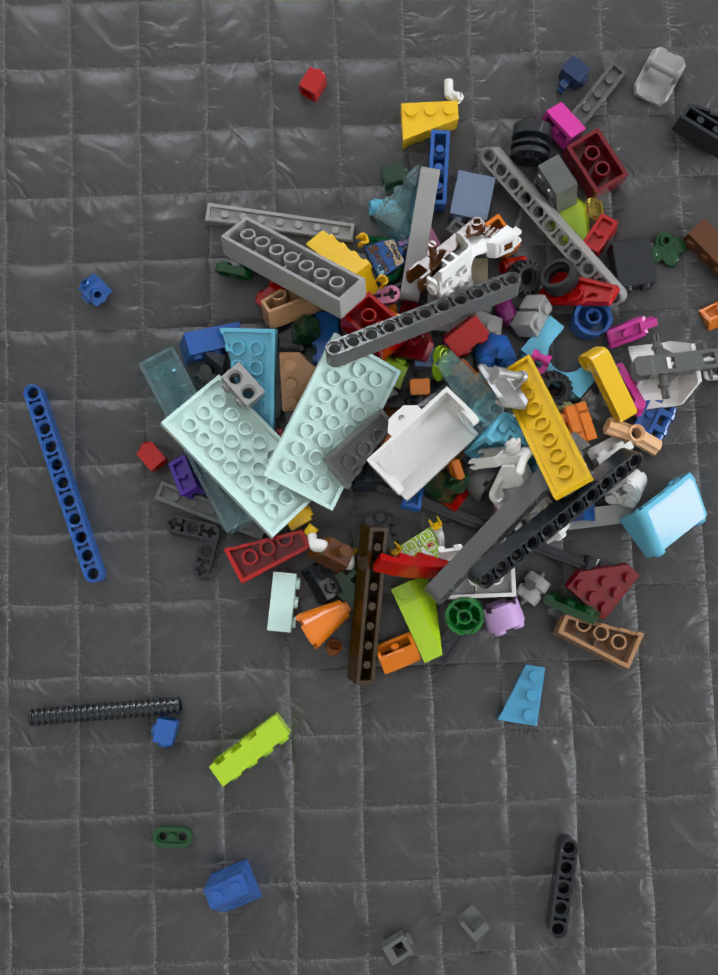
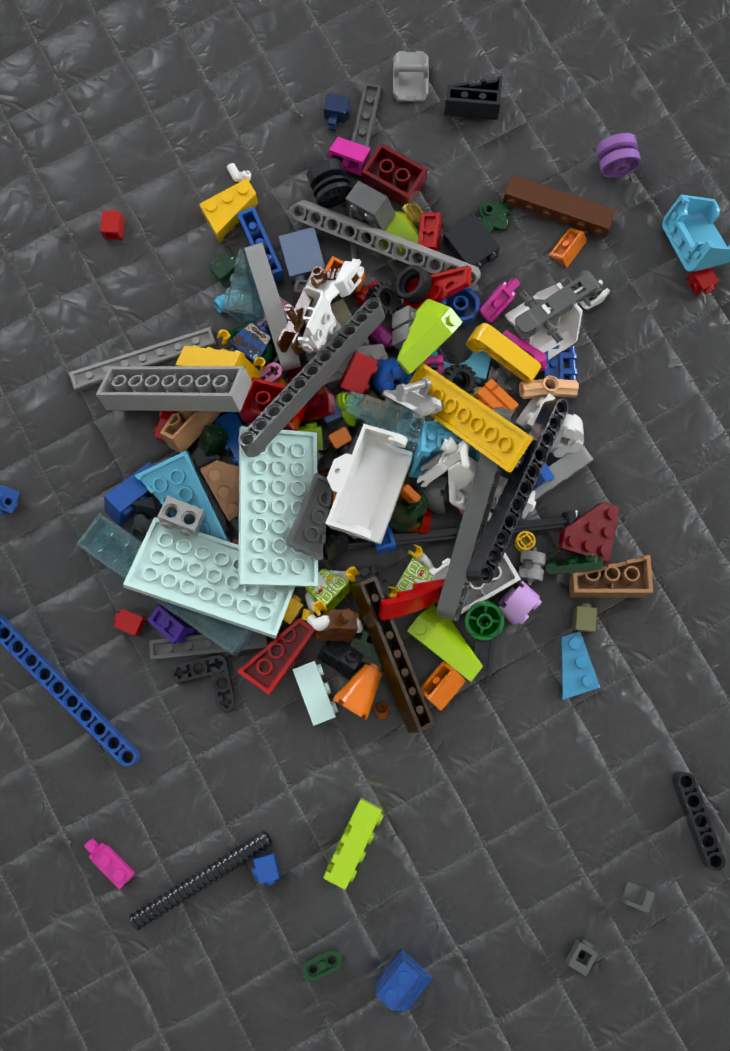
camera: 25 degrees left, 5 degrees down
(34, 656) = (109, 863): none -> dark pink hinge
(227, 270) = (117, 422): dark green plate -> none
(343, 519) = (331, 589): none -> torso
(533, 563) = (524, 541): none -> yellow wheel
(551, 328) = (430, 328): none -> lime wedge
(555, 658) = (584, 618): none -> olive brick
(666, 516) = (614, 443): windscreen -> none

